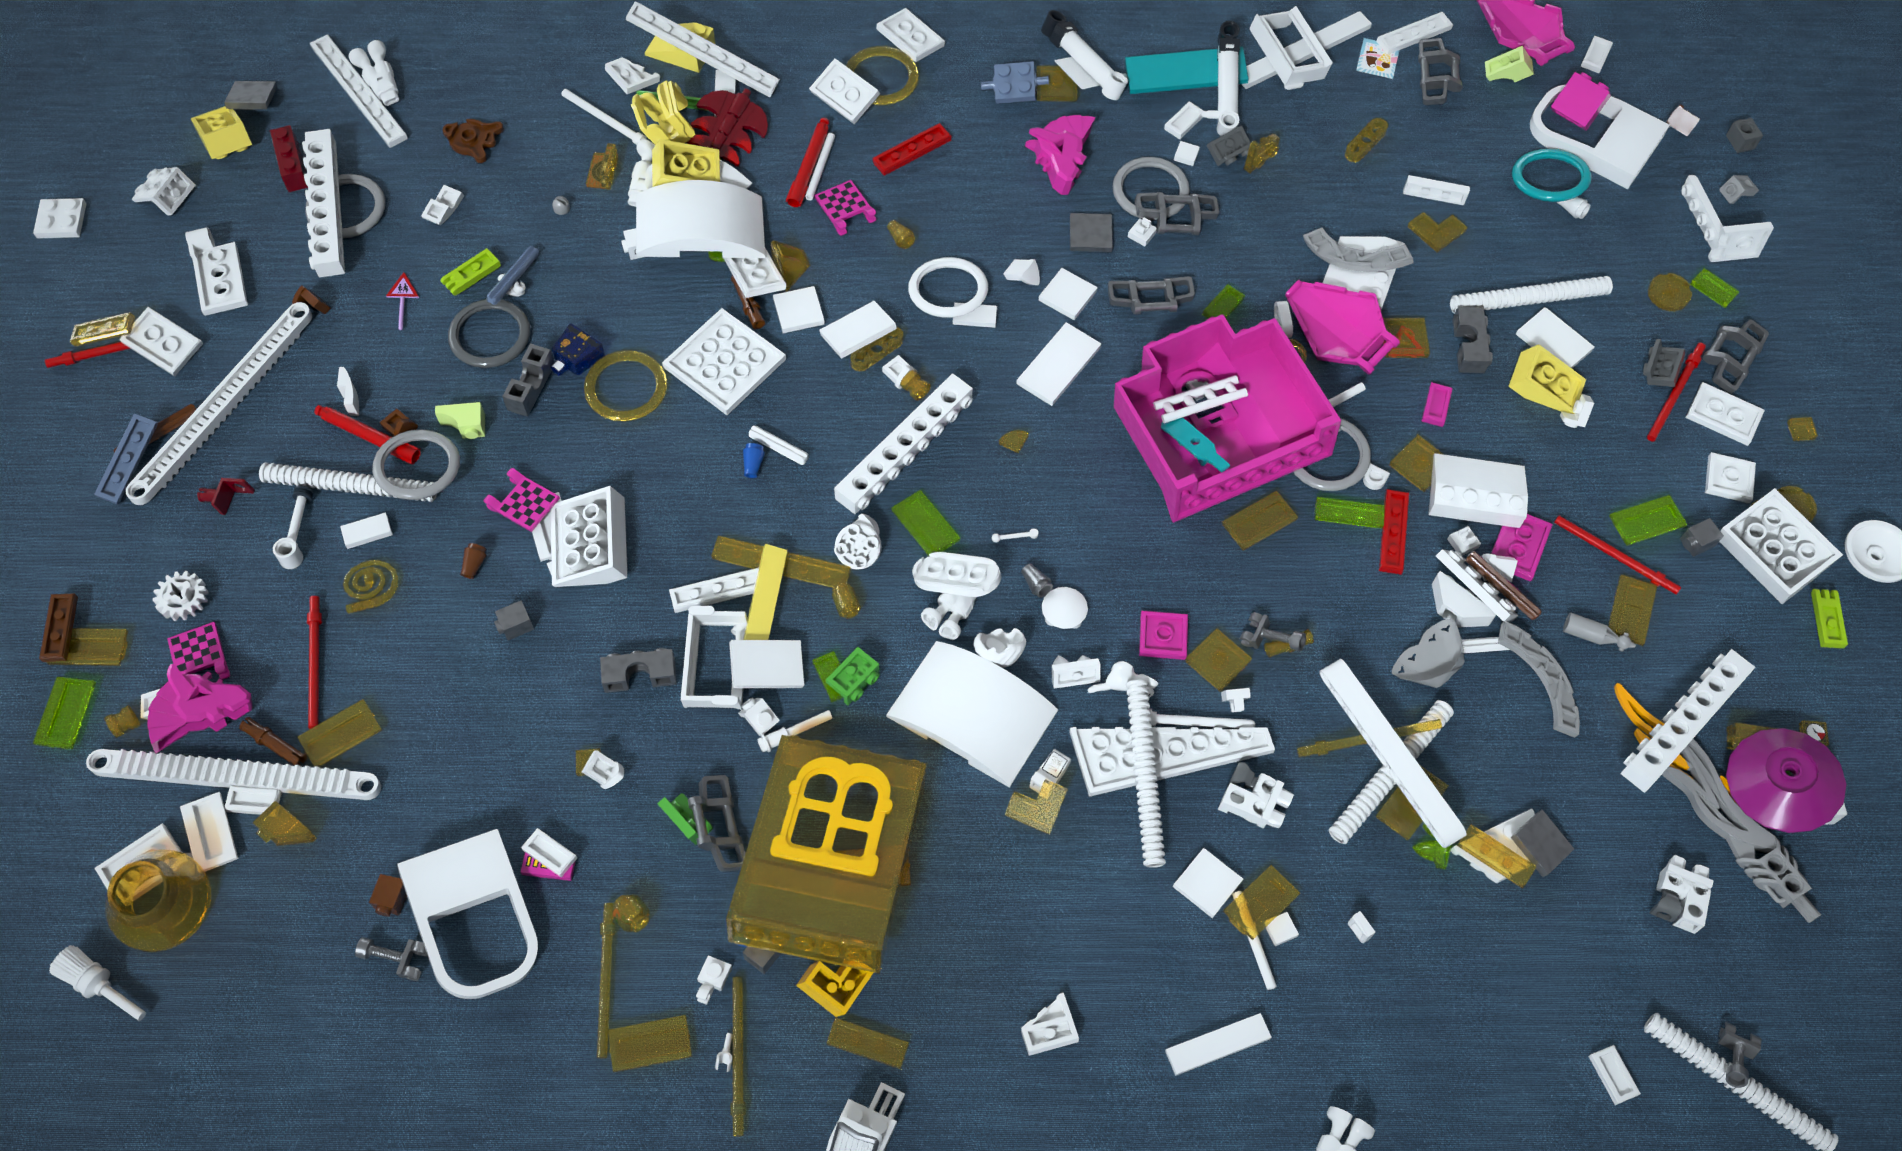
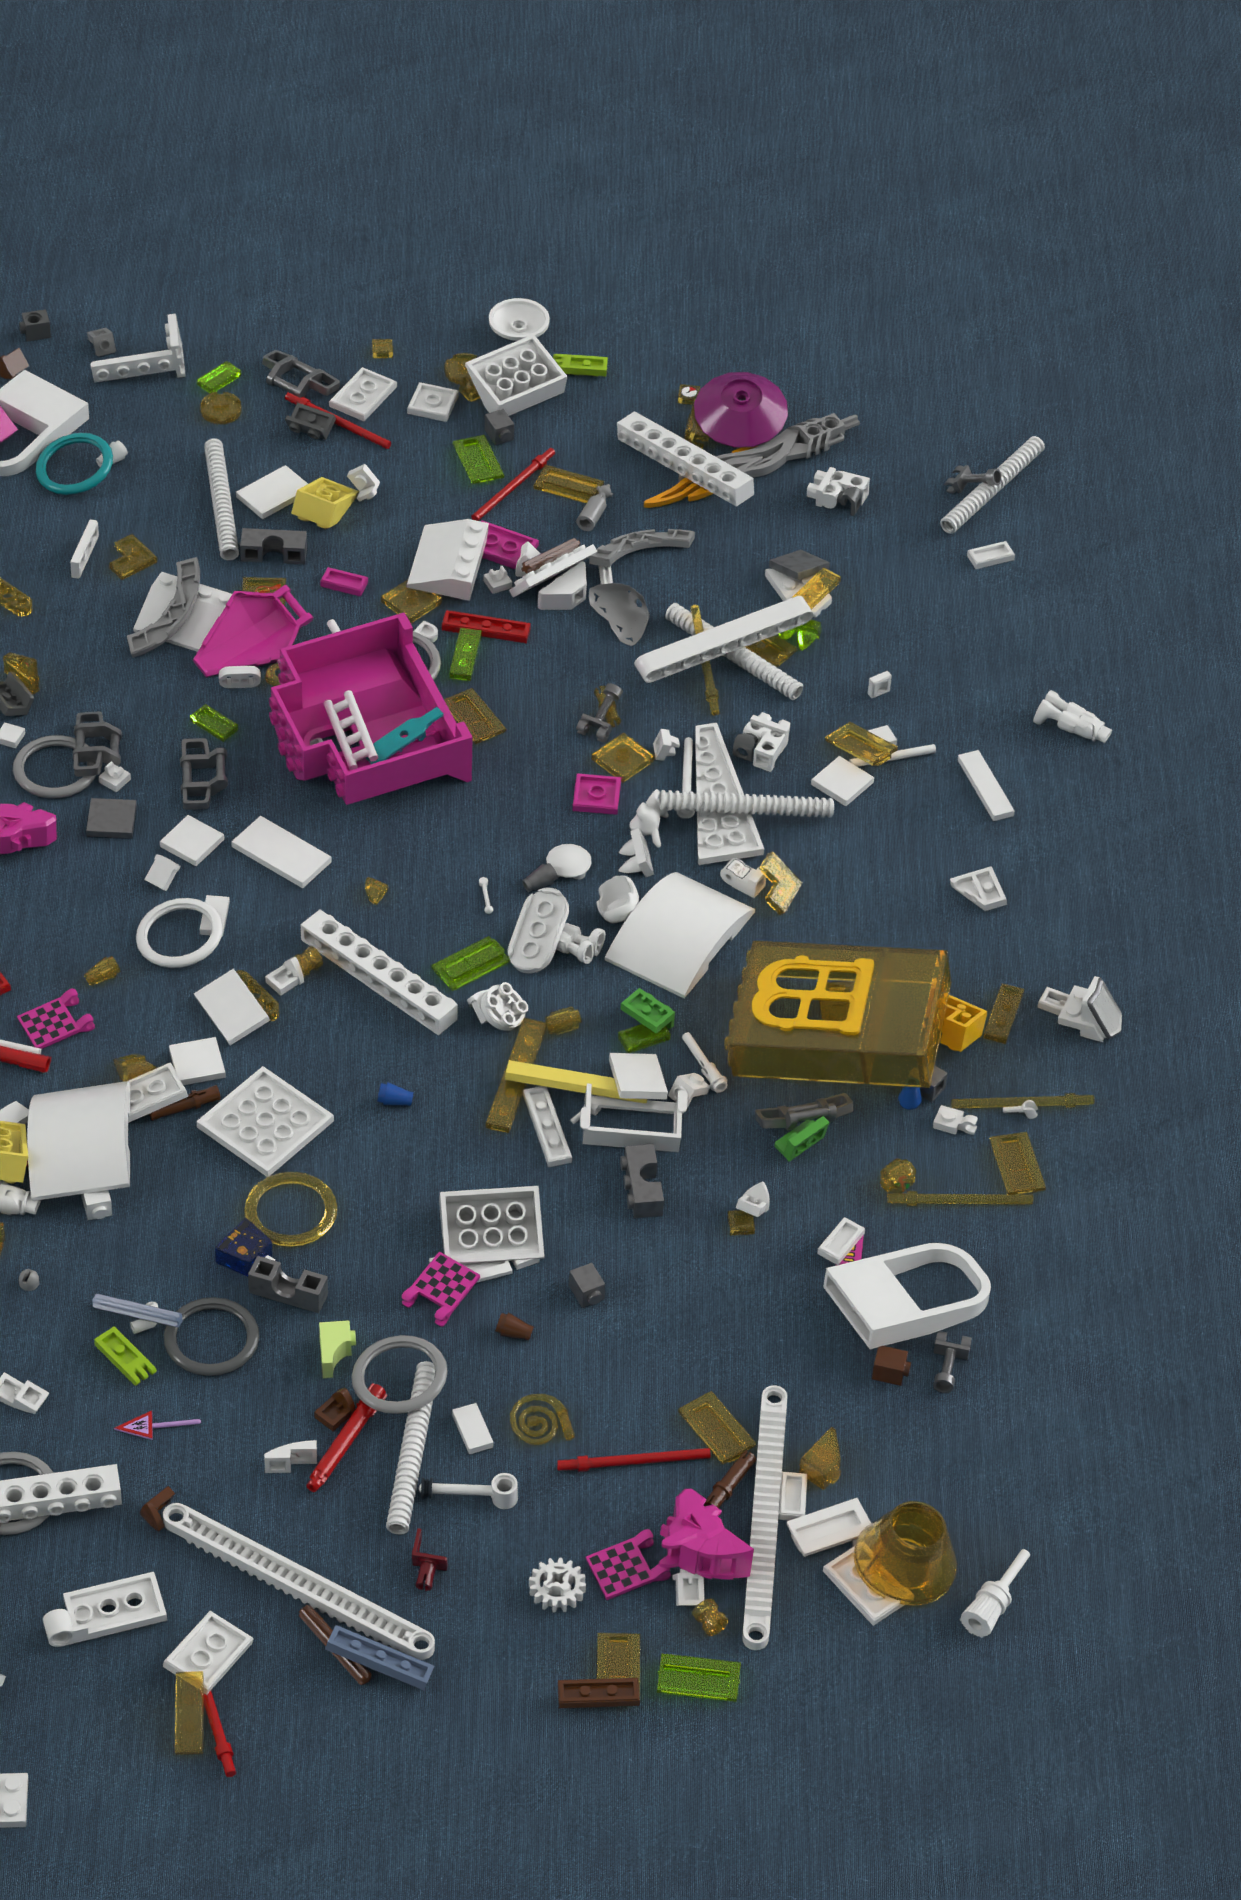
camera: 90 degrees left, 15 degrees down
(778, 445) = (374, 1077): white axle -> none

